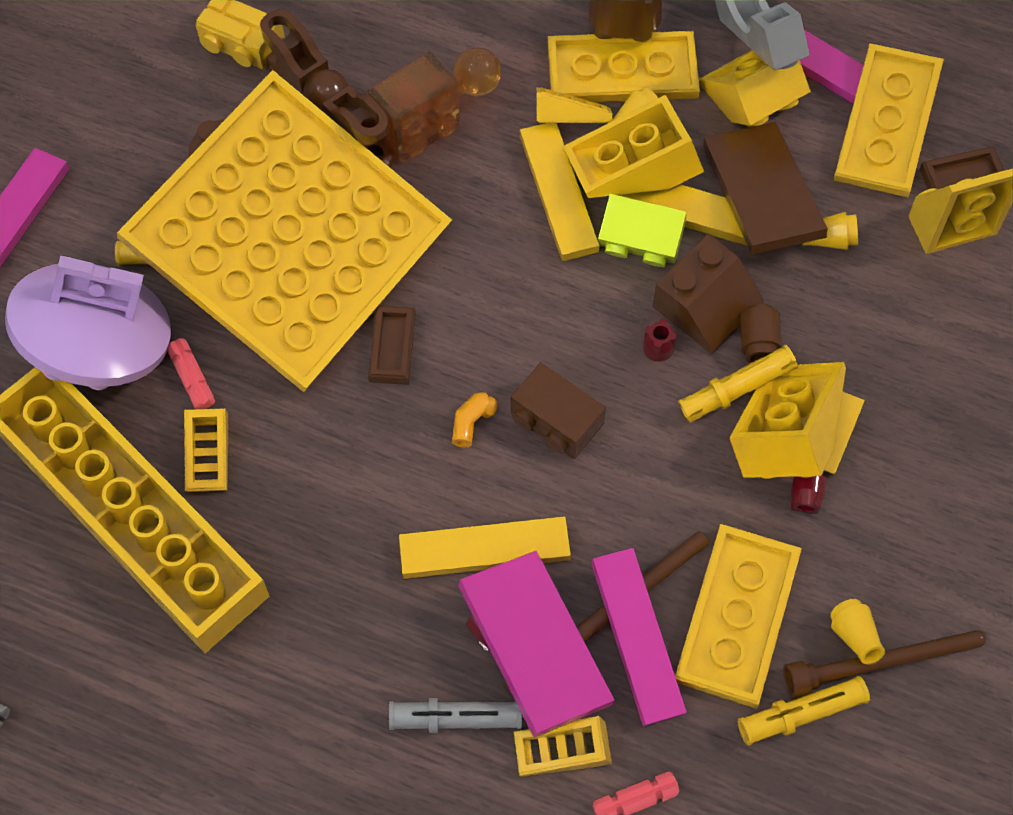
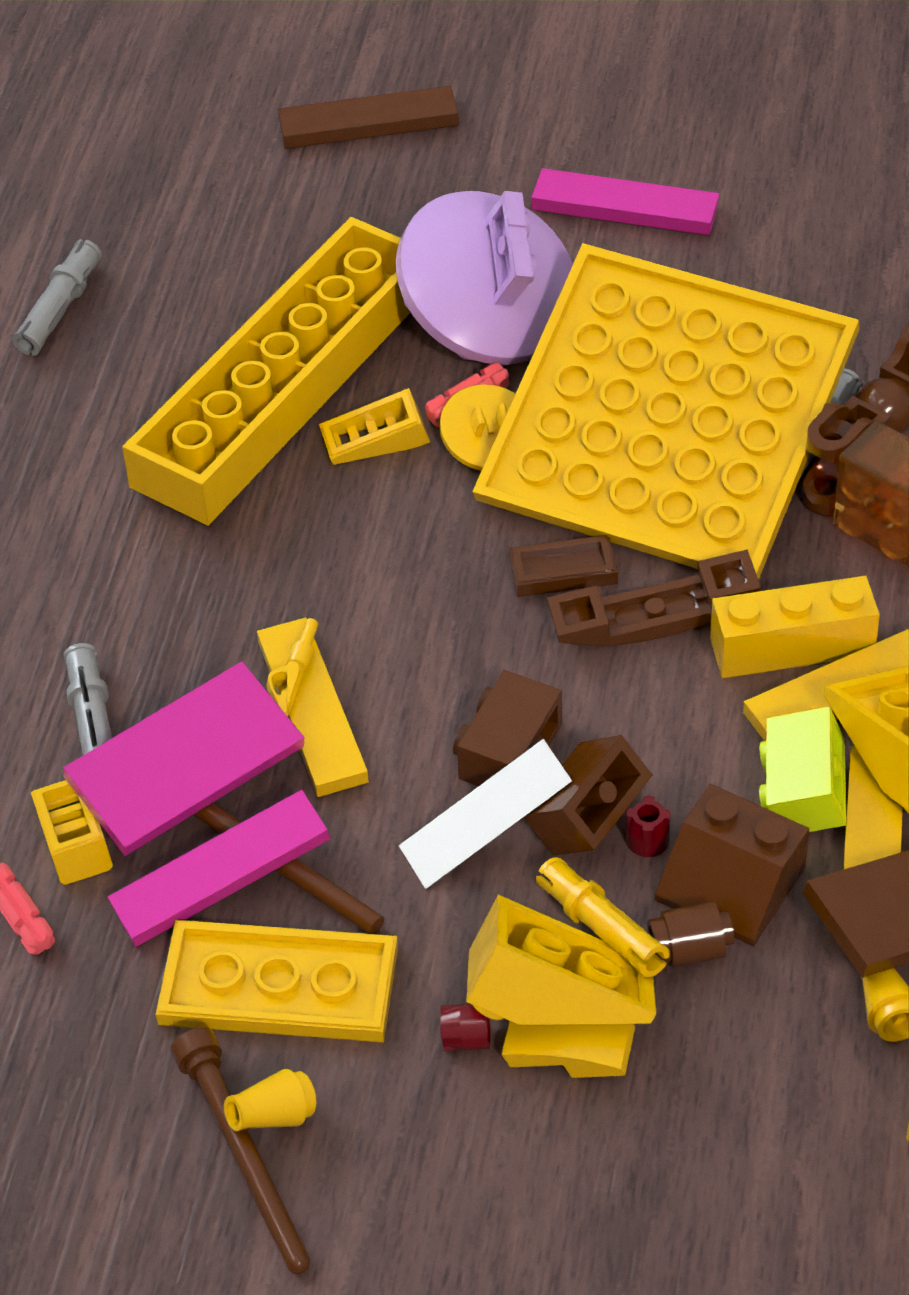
camera: 80 degrees right, 15 degrees down
(232, 368) = (473, 422): none -> yellow piece
(456, 286) = (651, 611): none -> reddish brown slope
(462, 551) = (293, 672): none -> yellow hand
(476, 406) = (480, 653): light orange arm -> none
(508, 205) = (793, 626): none -> yellow brick
(633, 440) = (485, 813): none -> white sticker
(634, 369) = (603, 785): none -> reddish brown brick
(787, 716) = (144, 1046): yellow pin -> none

